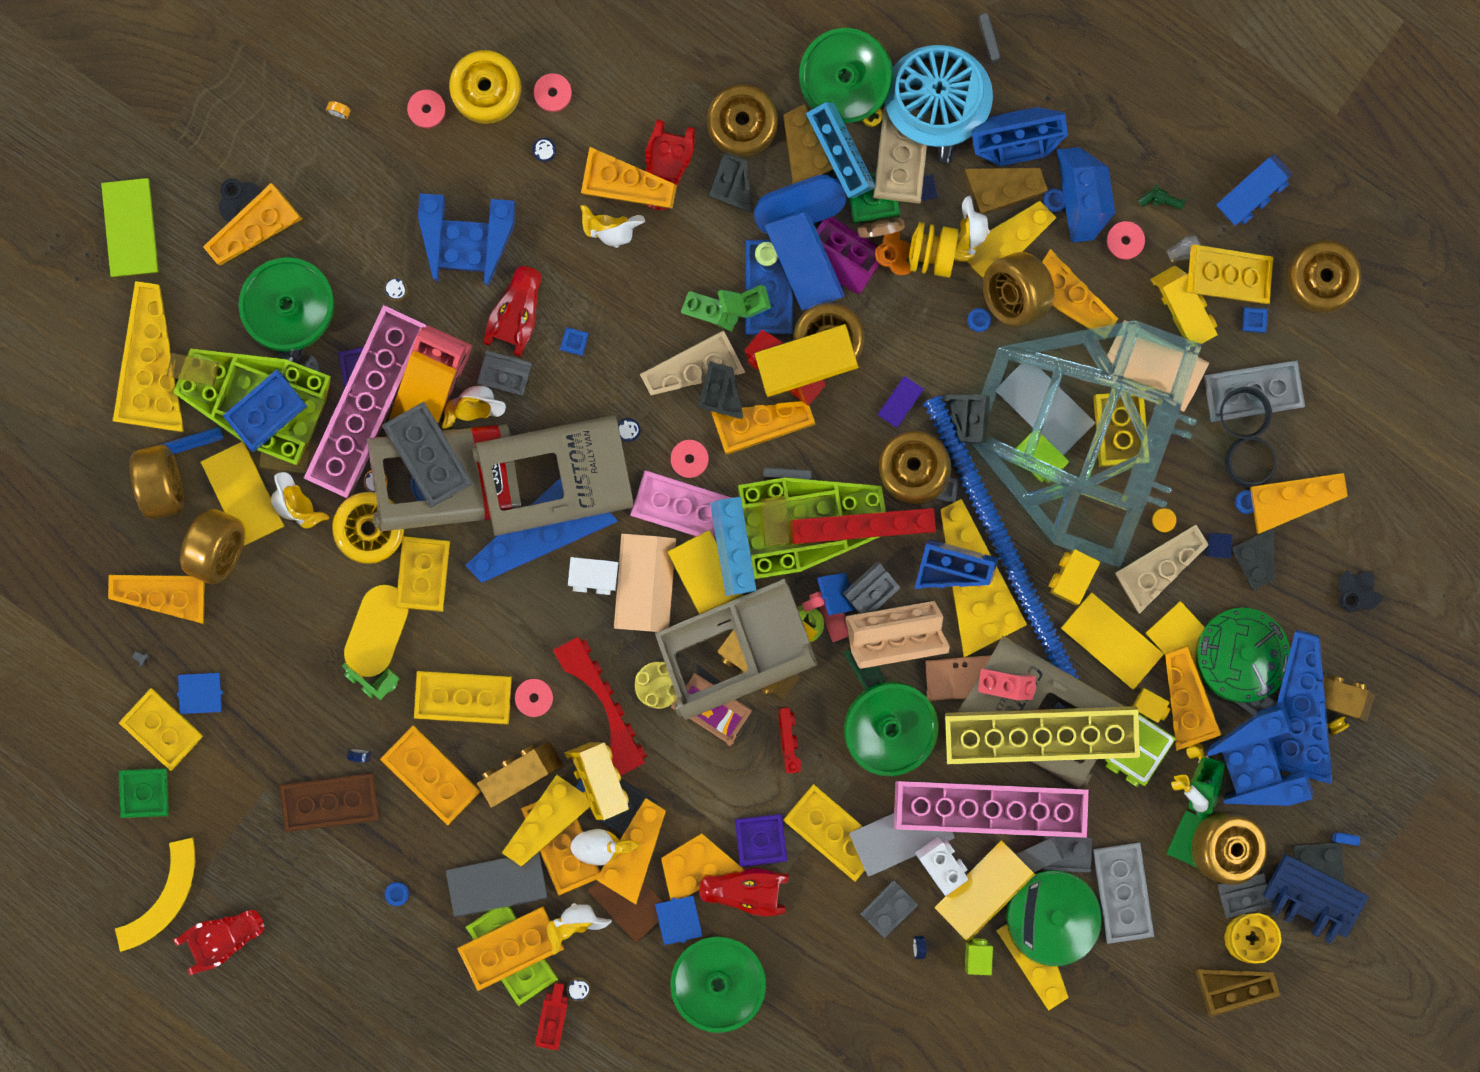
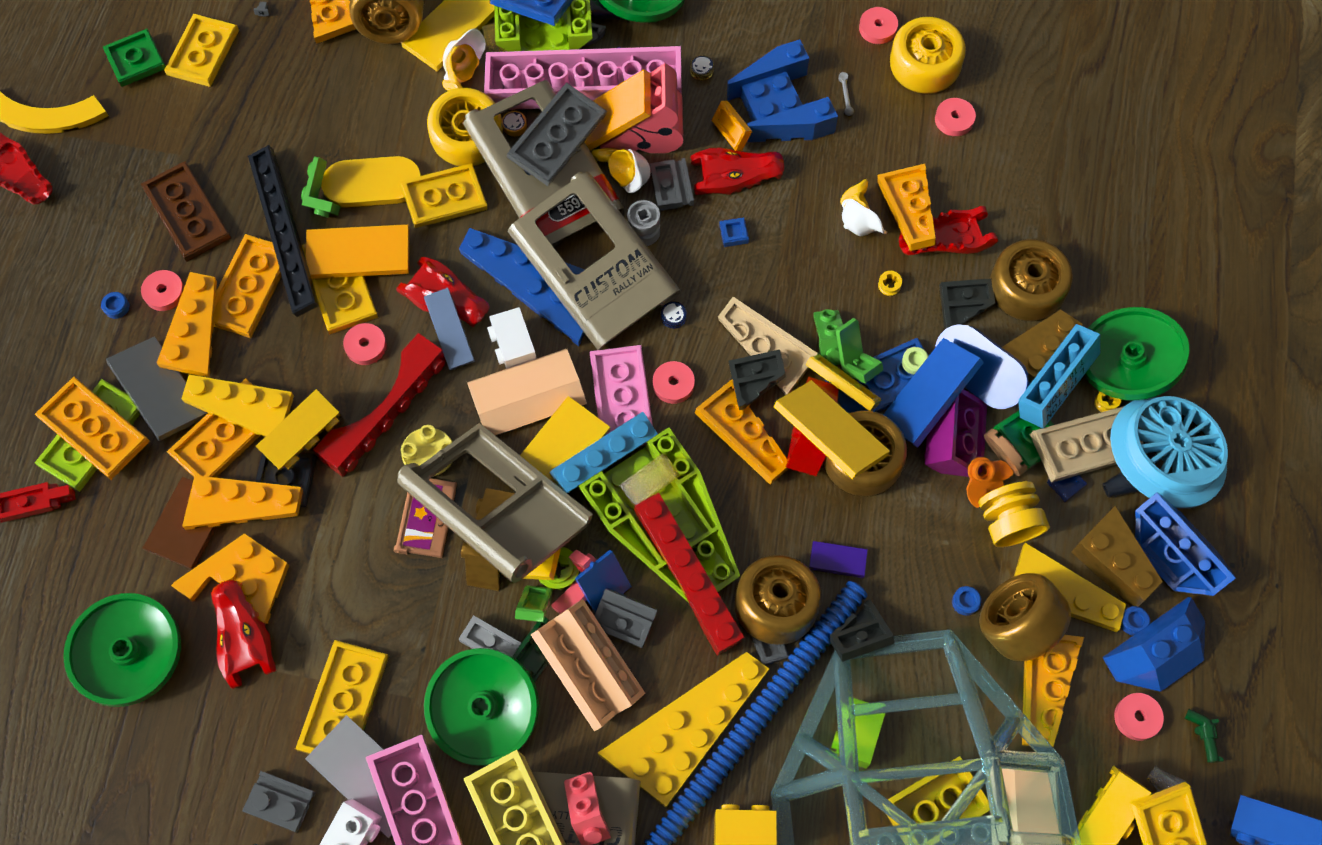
camera: 65 degrees right, 20 degrees down
(199, 693) = (249, 67): blue piece -> none
(359, 755) = (241, 213): clear blue tile -> none
(394, 725) = (283, 231): none -> black tile
(398, 859) = (155, 283): none -> coral piece
(446, 670) = (358, 251): none -> light orange tile
(460, 838) = (191, 330): none -> light orange wing
(465, 169) = (843, 78): none -> light grey hinge
(474, 295) = (731, 125): none -> light orange tile
(518, 613) = (435, 277): none -> red animal
(519, 773) = (281, 358): pearl gold wedge -> none
(534, 415) = (645, 220): none -> light grey wheel
(544, 150) = (898, 131): tile -> none
(558, 622) = (449, 329): none -> sand blue tile
(574, 919) = (141, 472): hair -> none
(578, 989) = (73, 515): tile -> none
(600, 847) = (229, 462): white hair -> none
(678, 920) = (182, 579): blue piece -> none
(691, 231) = (890, 275): none -> yellow bush
(760, 323) = (844, 382): none -> yellow tile
(761, 840) = (302, 626): dark purple tile -> none
(776, 473) = (699, 460): dark grey tile -> none
(788, 740) = (423, 605): red hinge -> none
(830, 655) = (534, 603): none -> bright green tile
(839, 701) = (482, 635): none -> light grey plate
(951, 683) = (563, 749): nougat door -> none
(954, 566) = (691, 687): blue wedge -> none
(973, 232) = (1051, 546): hair -> none
(989, 38) = (1256, 474): dark grey tile -> none
(1025, 393) = (912, 735): light grey tile -> none

